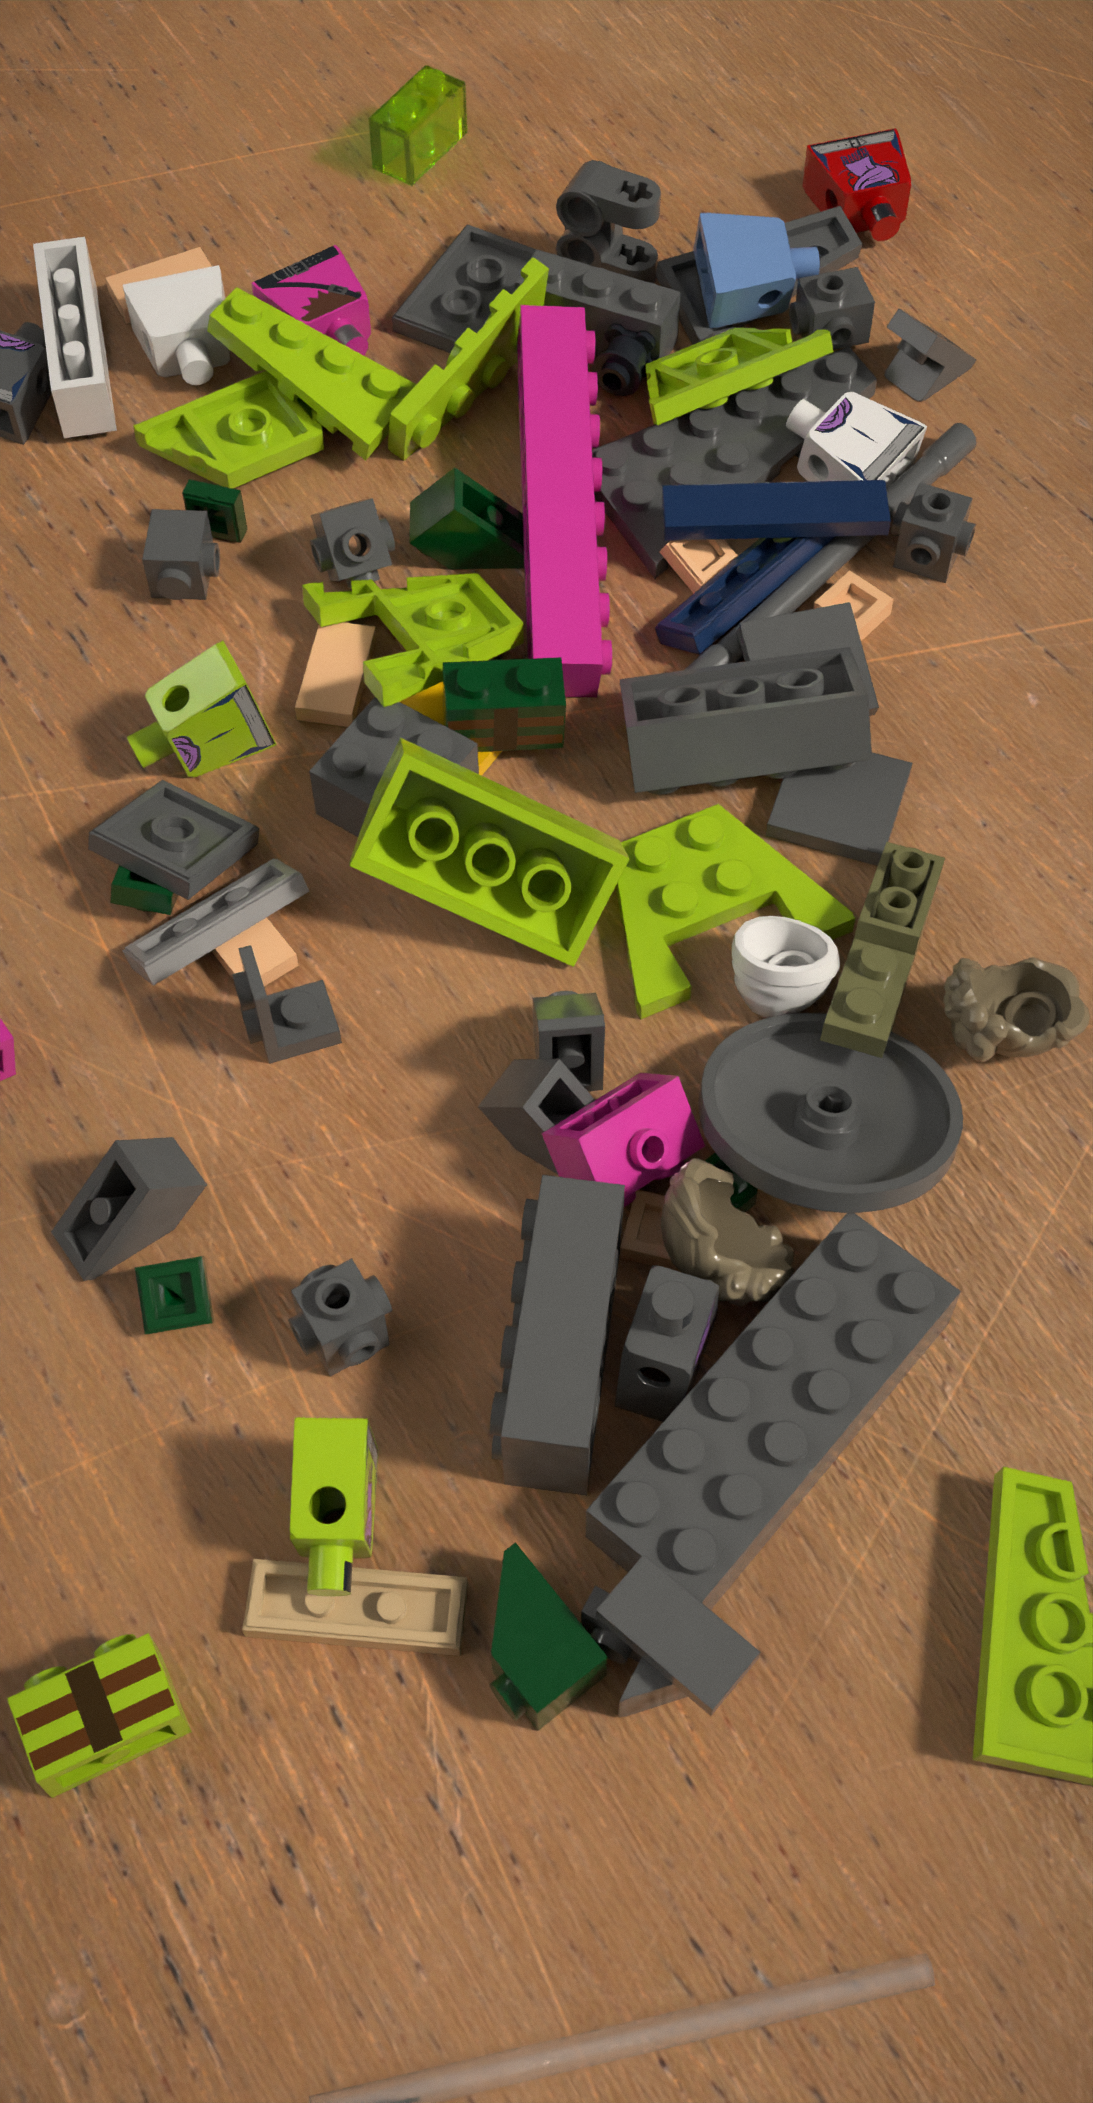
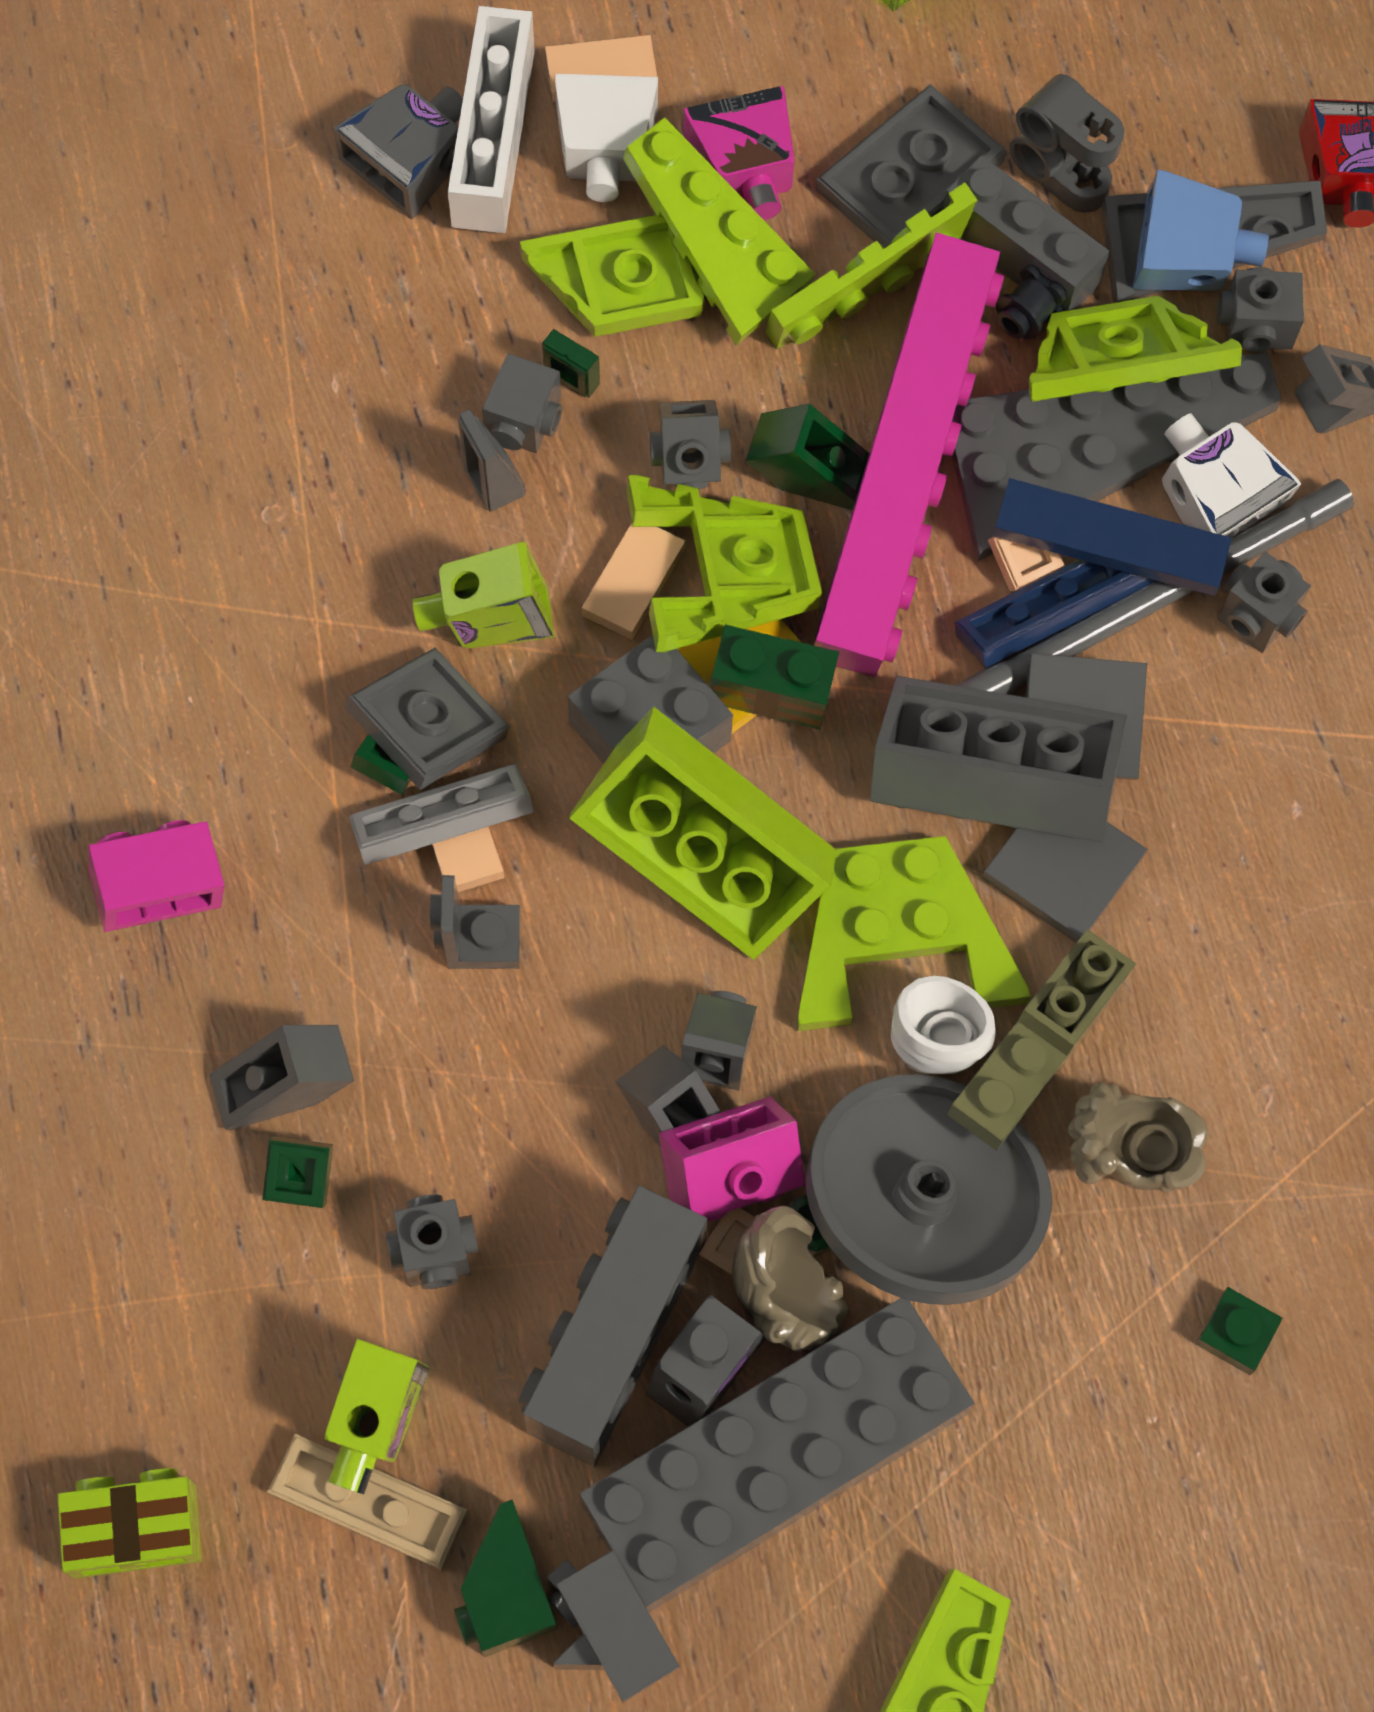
camera: 15 degrees right, 10 degrees up
(161, 605) = (488, 464): none -> dark grey slope
(867, 602) = (1163, 651): light nougat tile -> none

